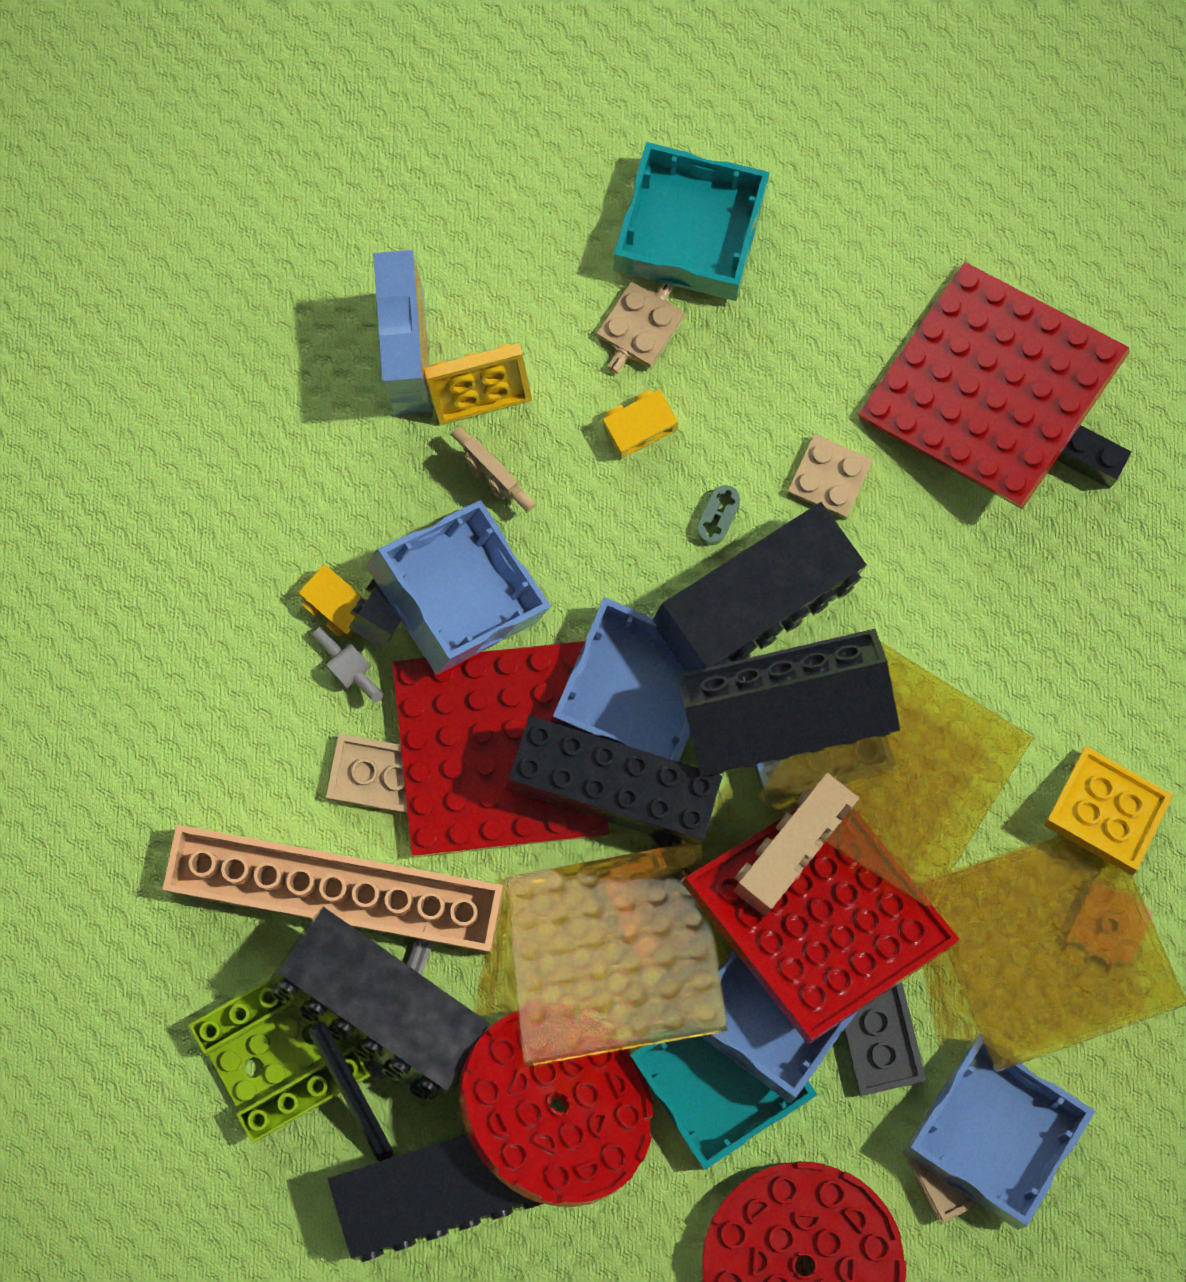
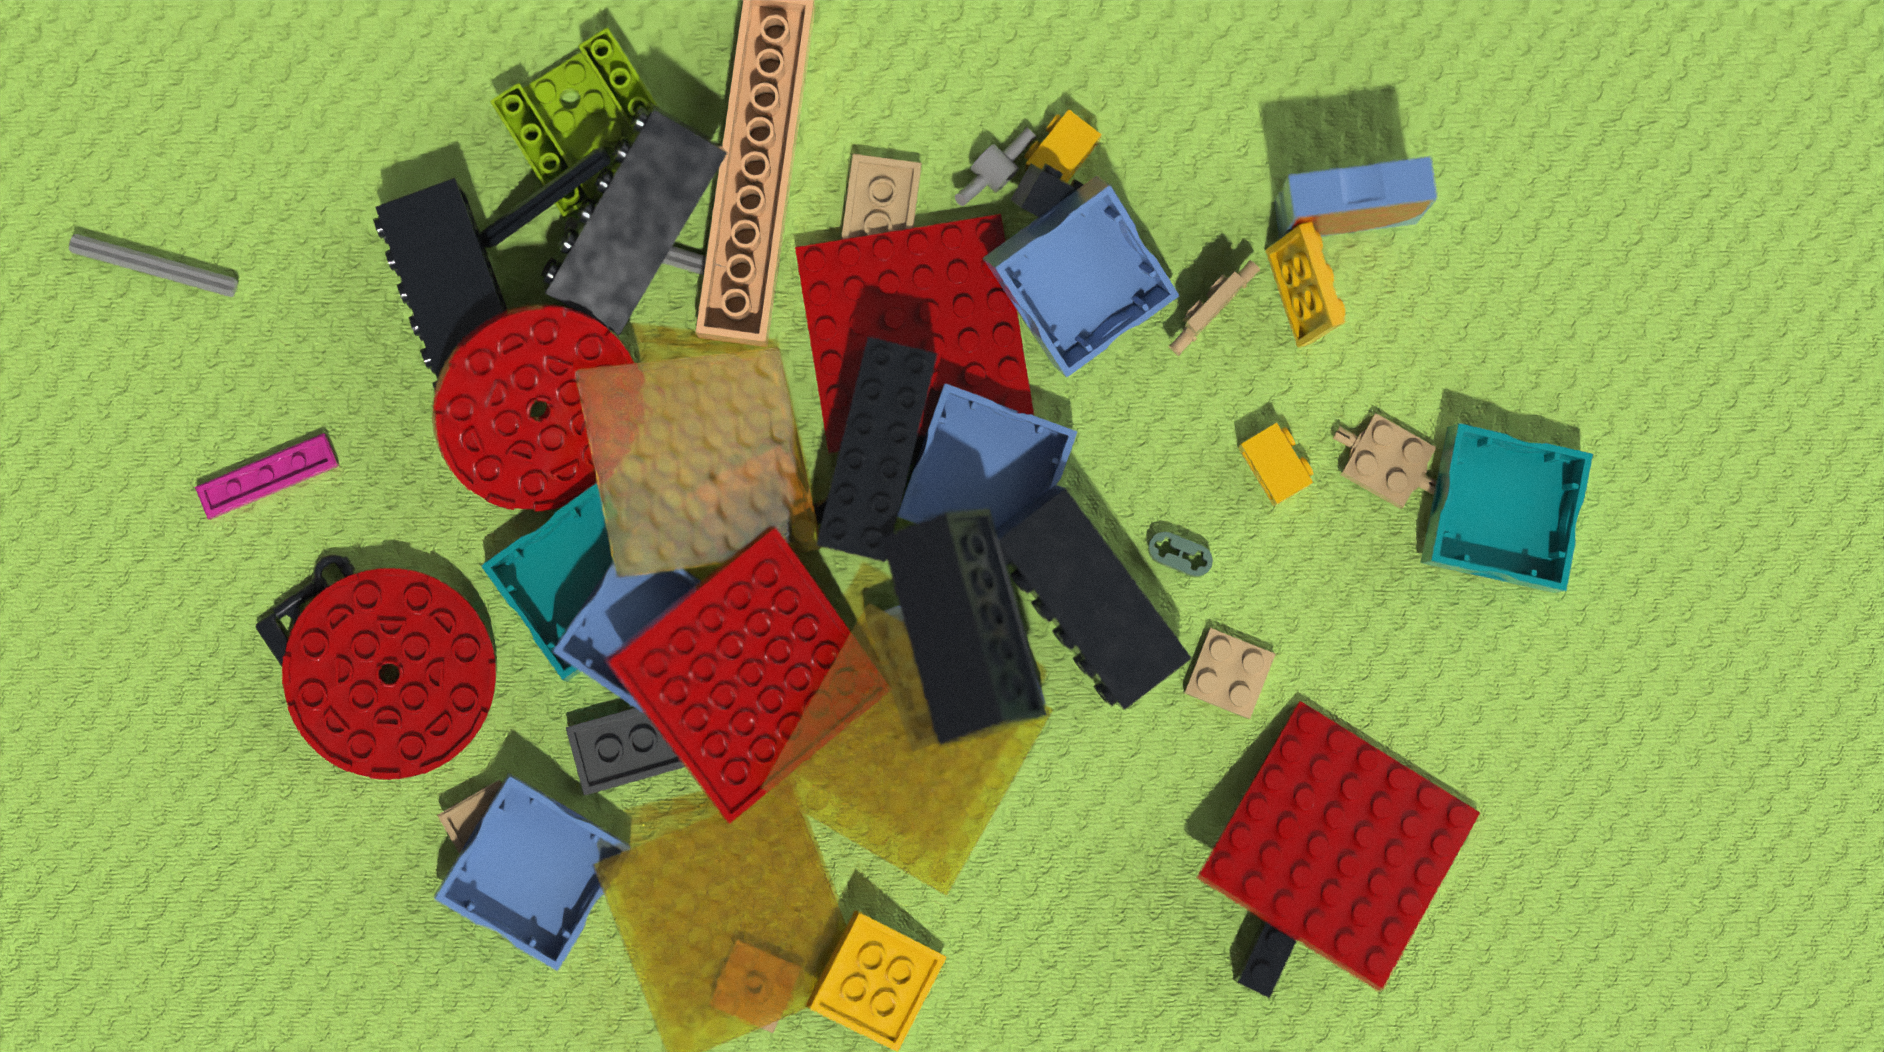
camera: 80 degrees right, 5 degrees up
(795, 844) = (813, 640): tan wedge -> none

